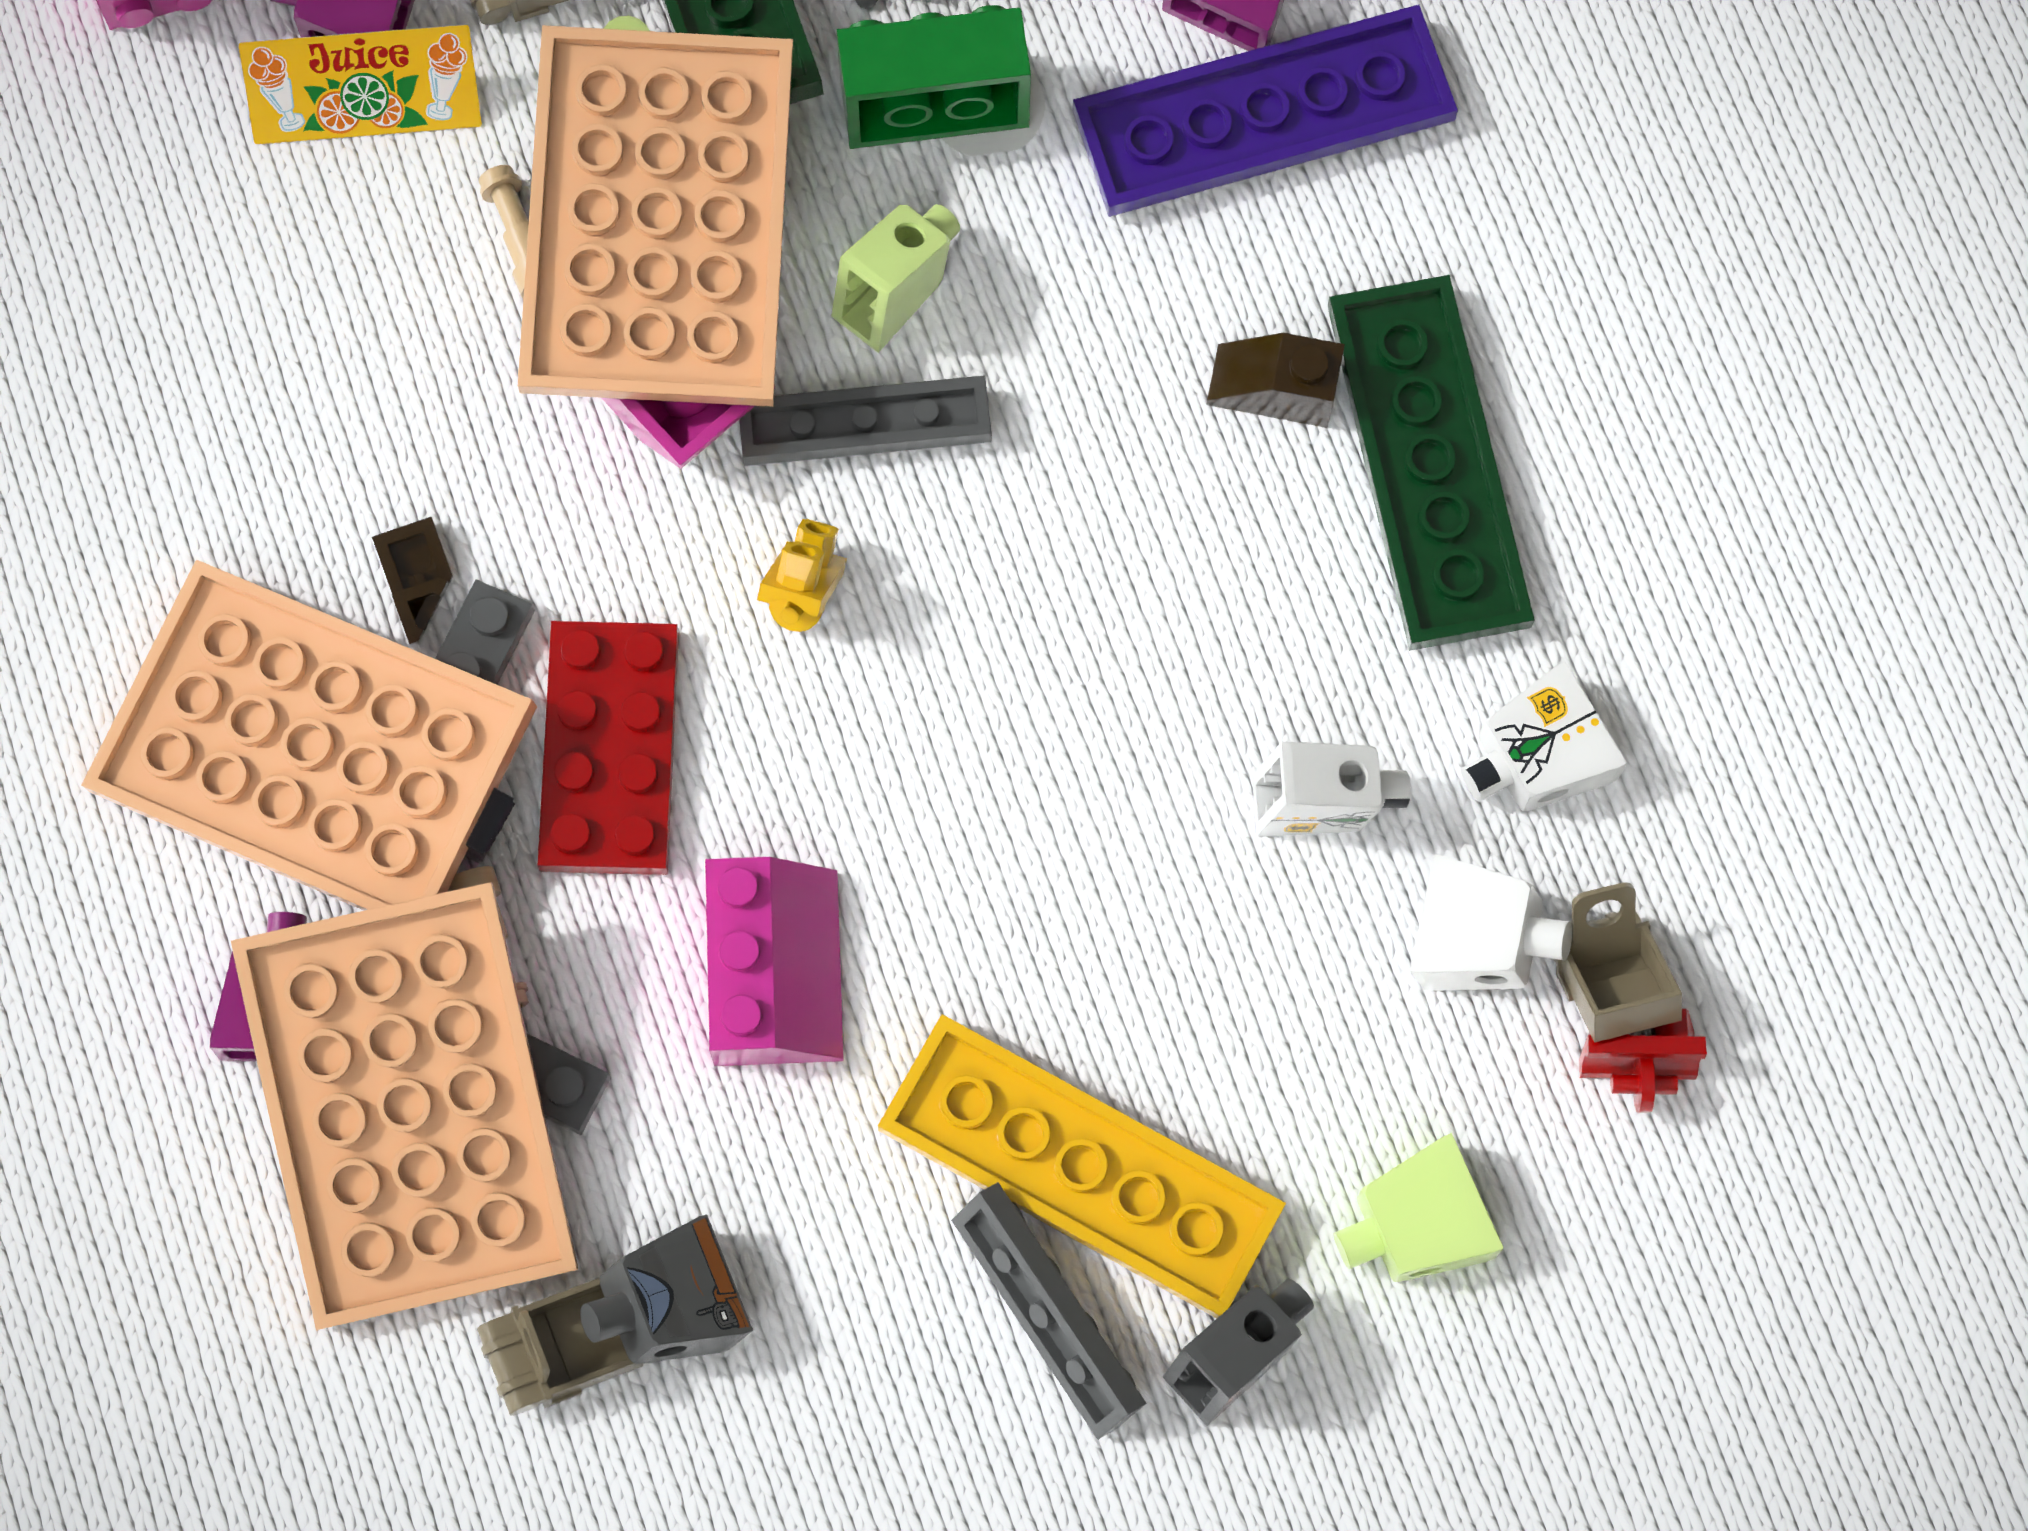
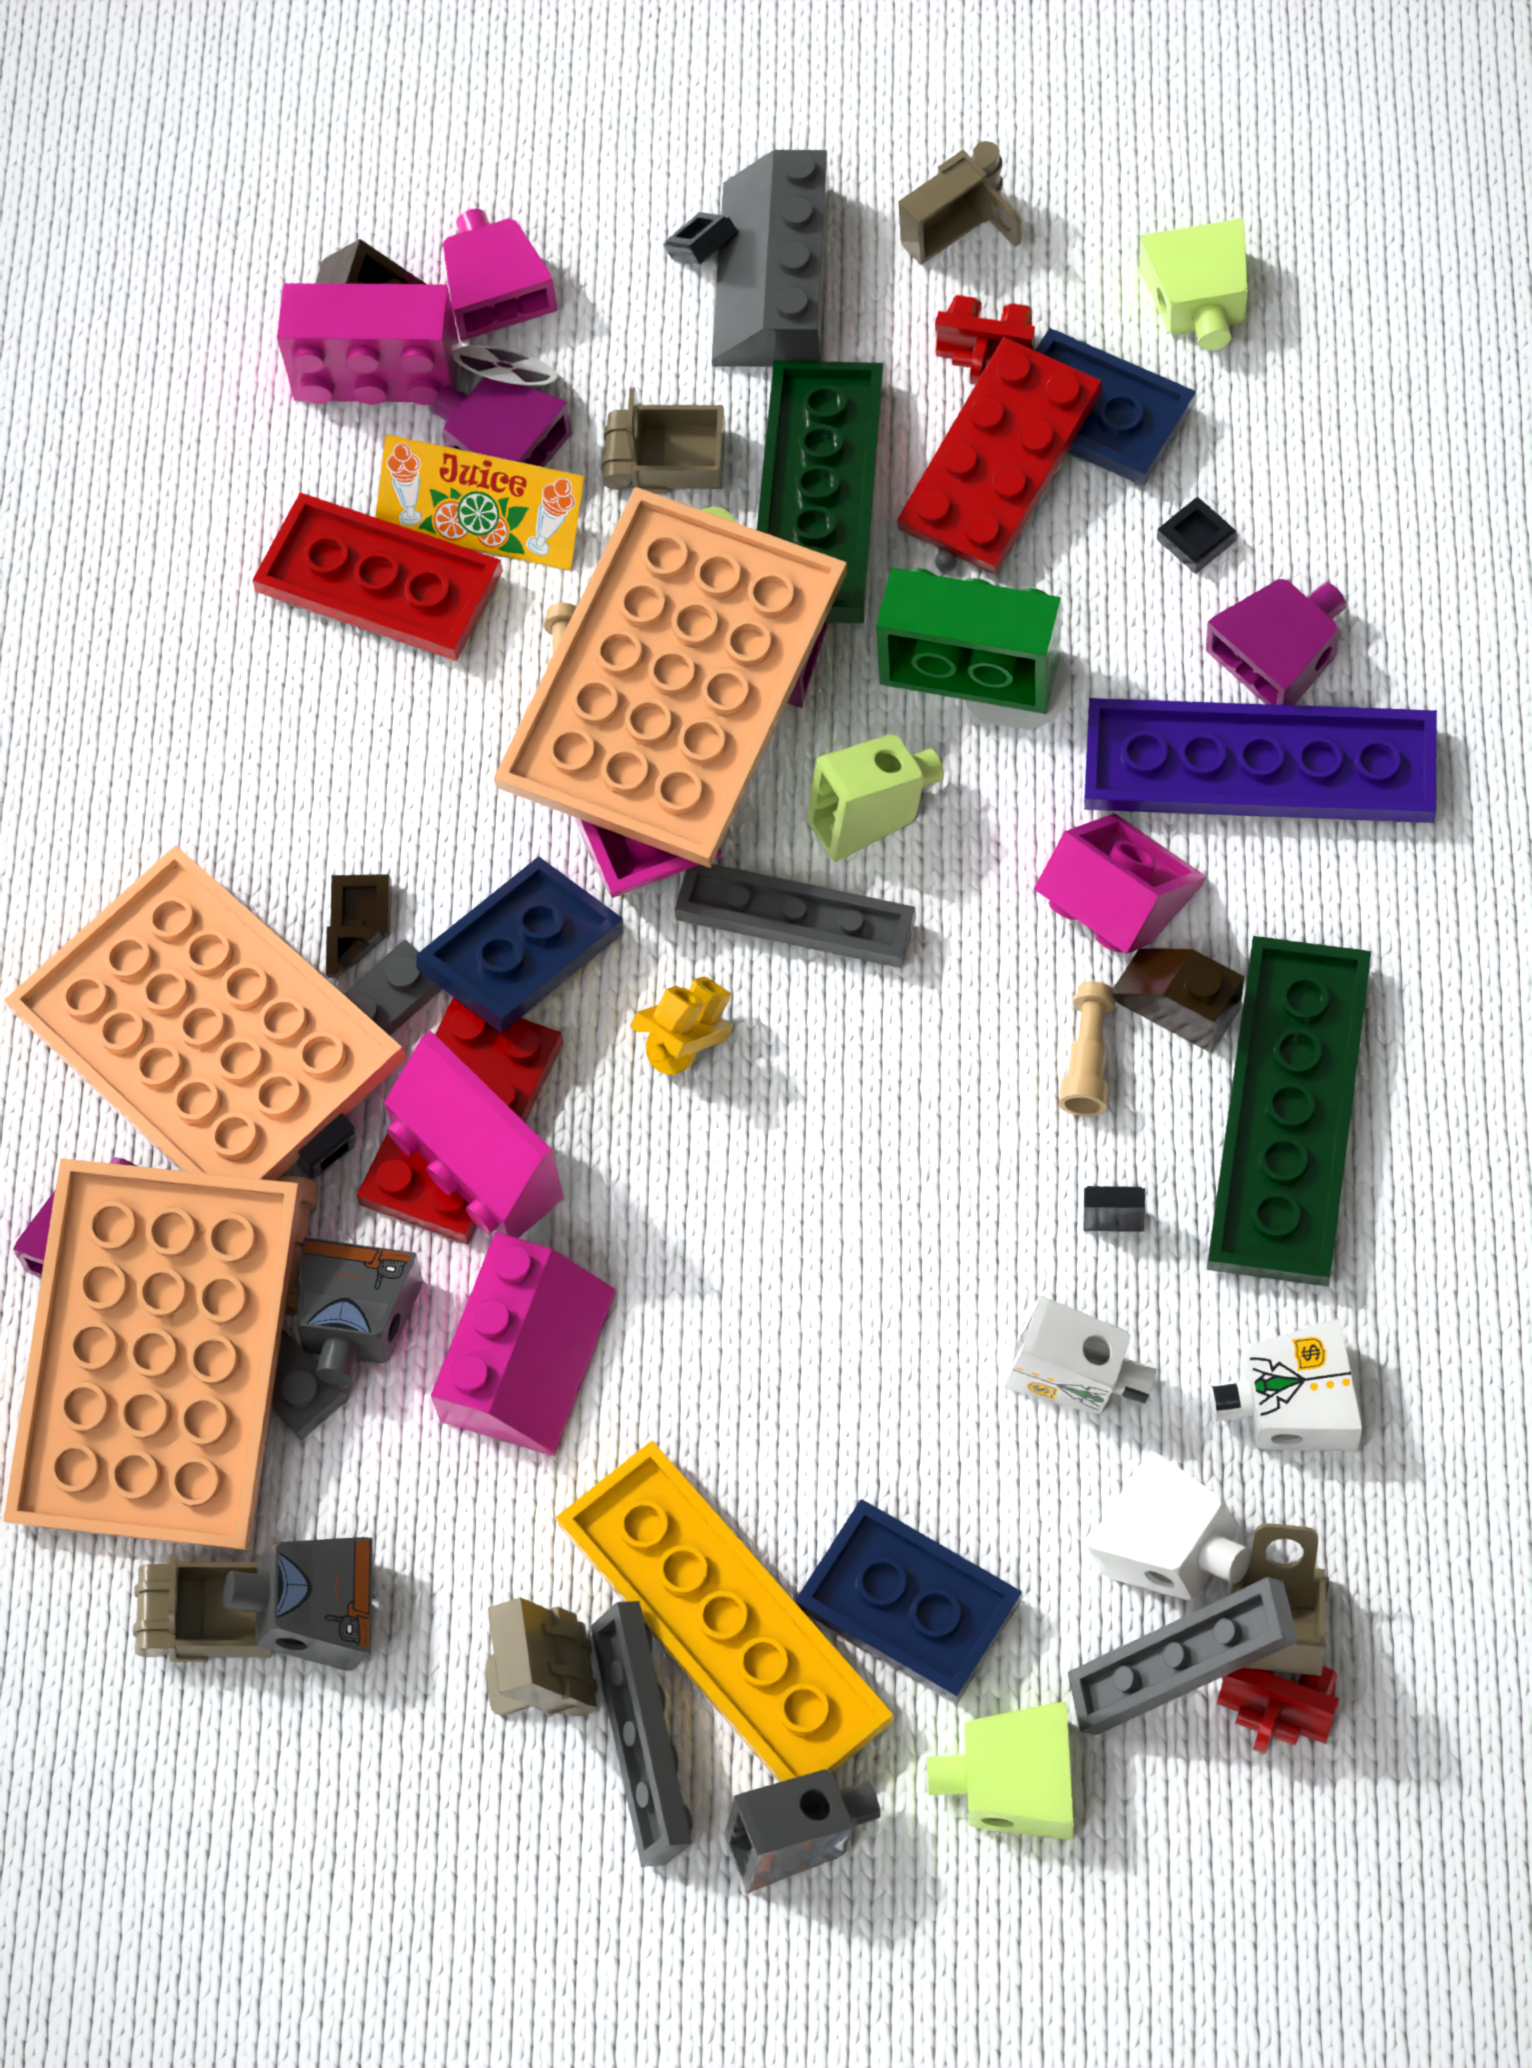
camera: 30 degrees right, 10 degrees down
(284, 197) = (378, 576): none -> red plate
(583, 980) = (353, 1303): none -> dark grey torso
(600, 547) = (519, 944): none -> dark blue plate
(645, 774) = (472, 1141): none -> dark pink slope
(925, 1277) = (539, 1660): none -> dark tan piece
(1174, 284) = (1117, 882): none -> dark pink slope
(1222, 507) = (1084, 1089): none -> tan piece
(1254, 1083) = (909, 1600): none -> dark blue plate
(1300, 621) = (1114, 1208): none -> black tile
(1550, 1051) = (1182, 1656): none -> plate

